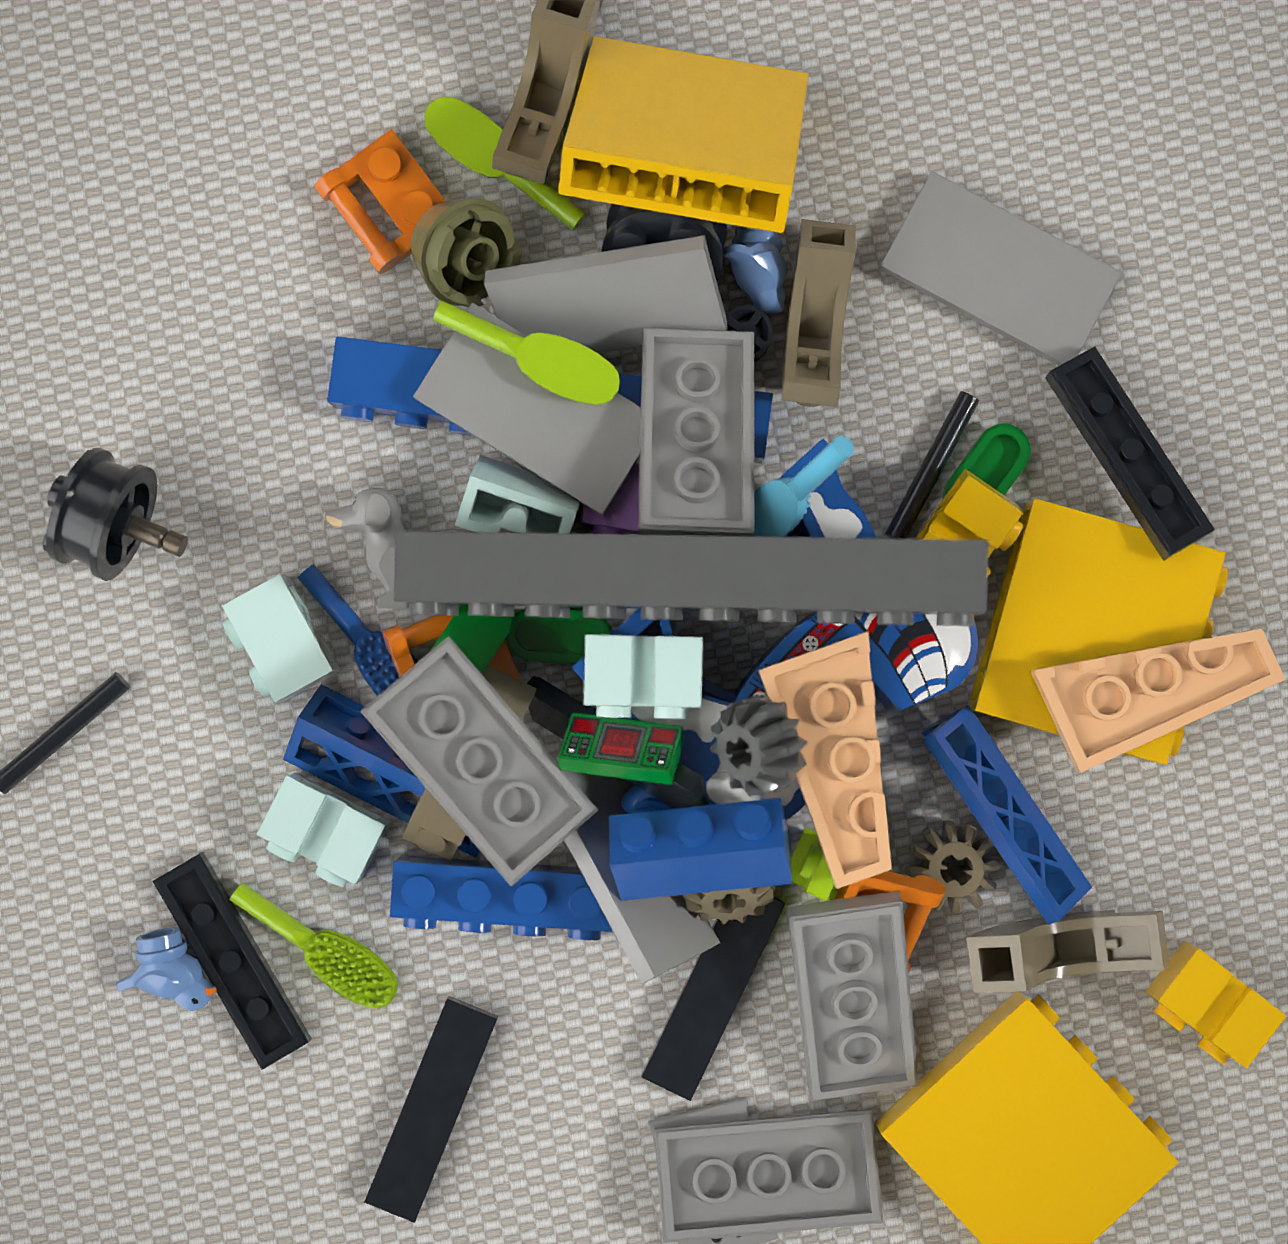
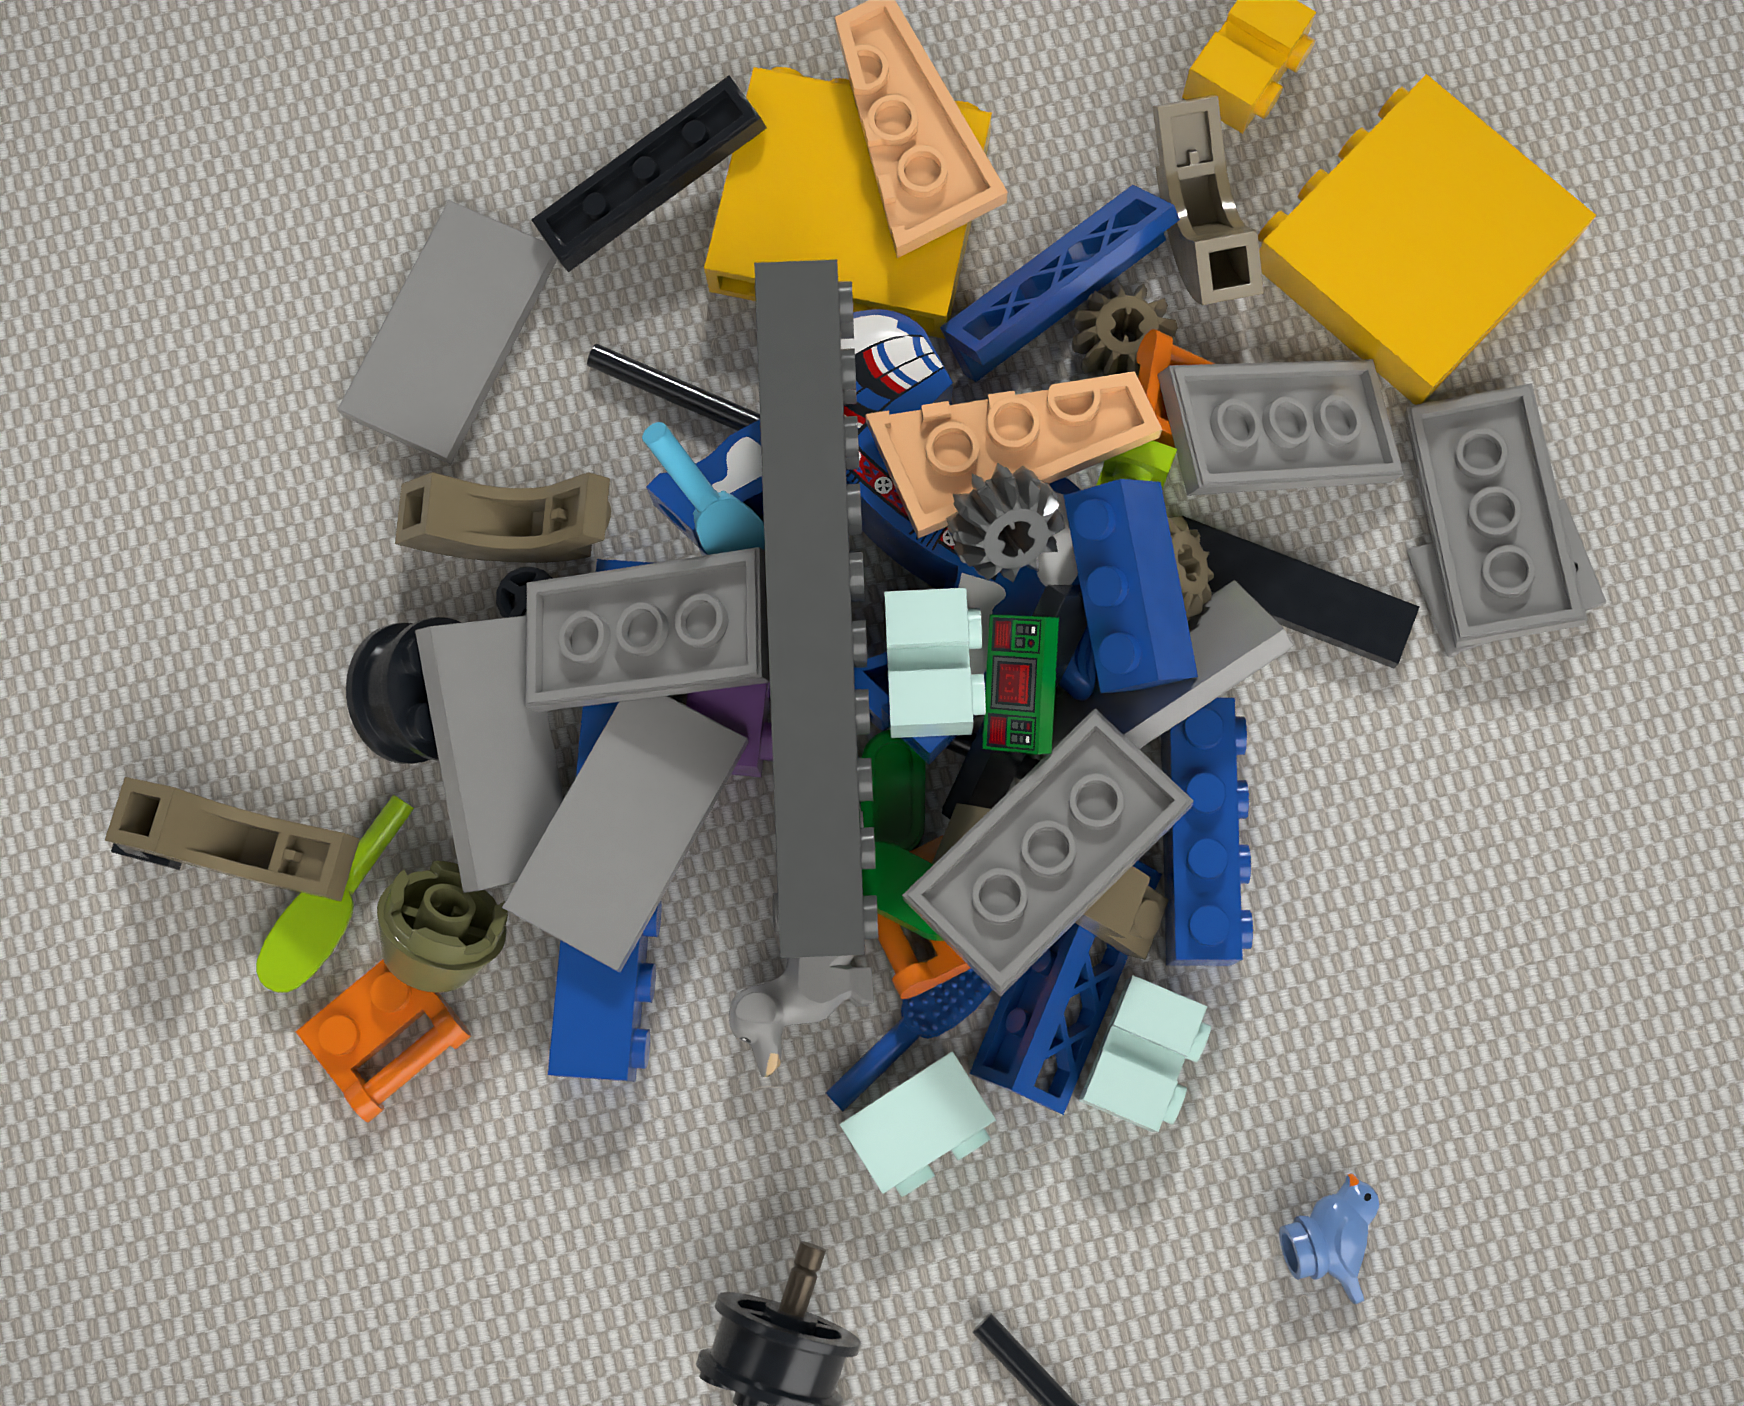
camera: 90 degrees left, 10 degrees down
(232, 960) = (1311, 1161): black tile -> none
(332, 956) = (1294, 1040): lime piece -> none
(431, 1109) = (1464, 907): black tile -> none
(513, 500) = (734, 848): light aqua brick -> none
(545, 358) = (565, 811): lime piece -> none
(685, 134) = (298, 667): yellow brick -> none
(759, 267) = (449, 589): medium blue animal -> none
(974, 513) = (724, 336): yellow brick -> none
(995, 458) = (678, 332): green tile -> none

